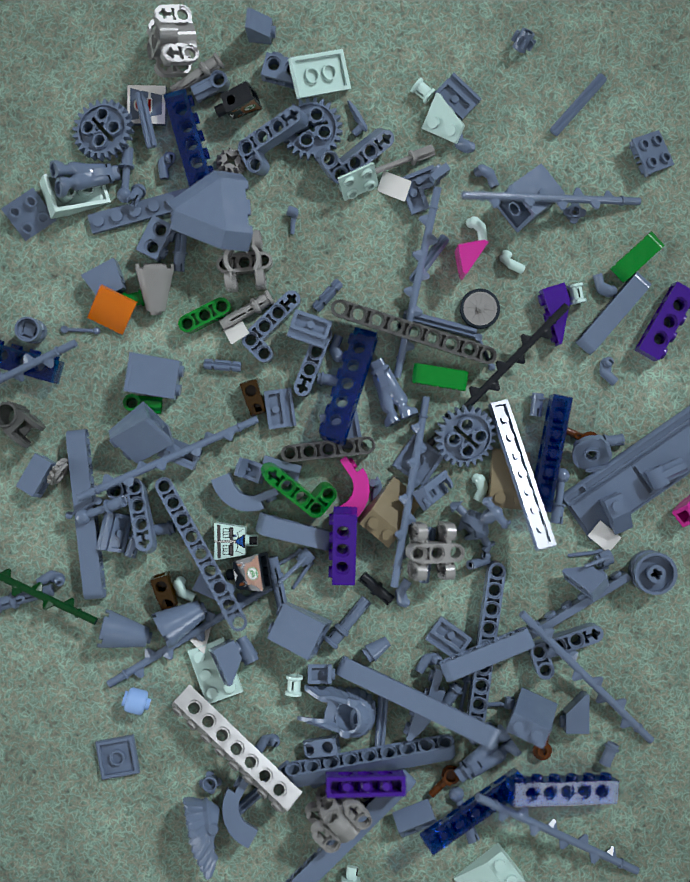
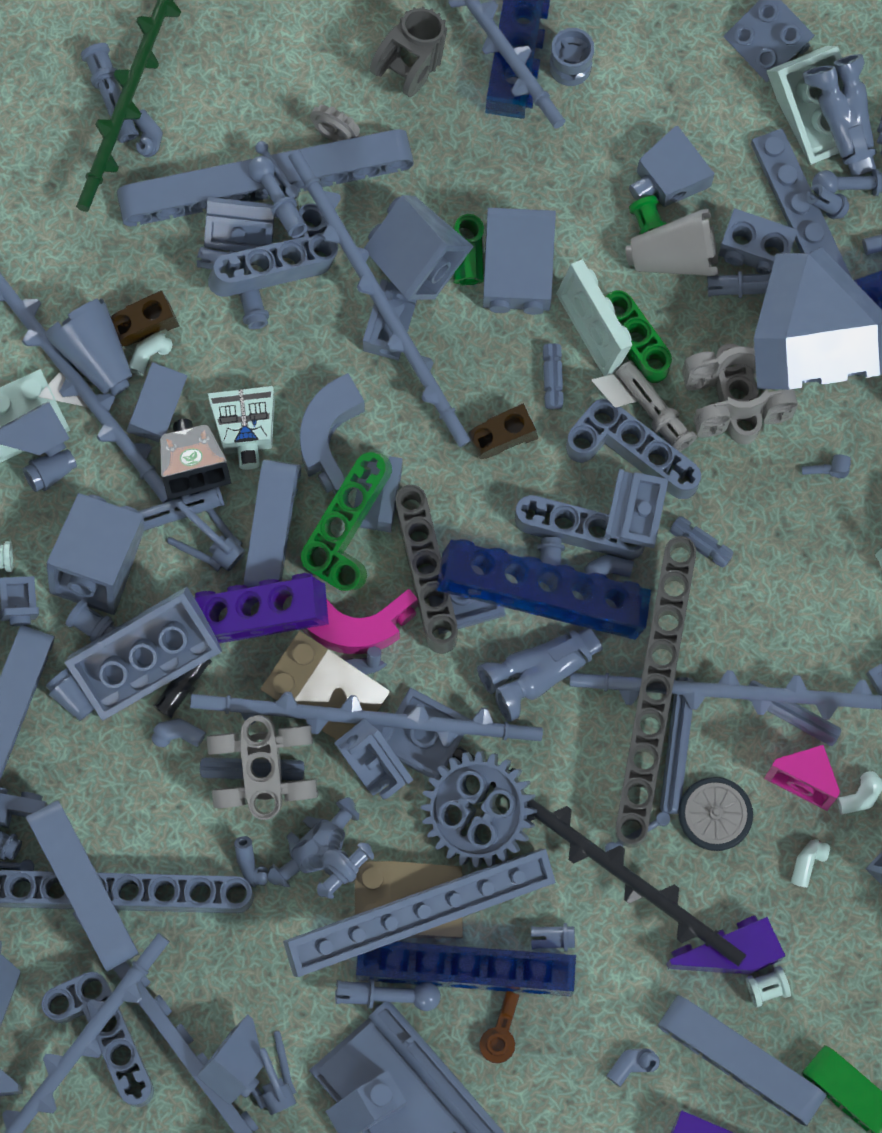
camera: 80 degrees right, 15 degrees down
(35, 476) = (319, 86): sand blue hinge -> none
(64, 329) = (581, 113): sand blue hinge -> none
(112, 309) = (625, 182): orange slope -> none
(122, 632) = (65, 254): sand blue cone -> none
(193, 337) = (594, 318): none -> light aqua plate
(199, 544) = (205, 380): sand blue beam -> none
(249, 470) = (373, 435): sand blue bracket -> none
(280, 408) = (488, 480): sand blue plate -> none
(360, 608) = (143, 653): none -> sand blue slope
(428, 659) = (57, 789): sand blue arm -> none
(440, 377) = (581, 754): green beam -> none
(448, 637) = (104, 821): sand blue plate -> none
(482, 486) = (394, 850): light aqua arm -> none
(591, 443) = (492, 1051): sand blue plate -> none
(604, 288) = (786, 1037): sand blue arm -> none
(604, 536) = (319, 1093): white sticker -> none
(615, 440) = (502, 1085): sand blue pin -> none

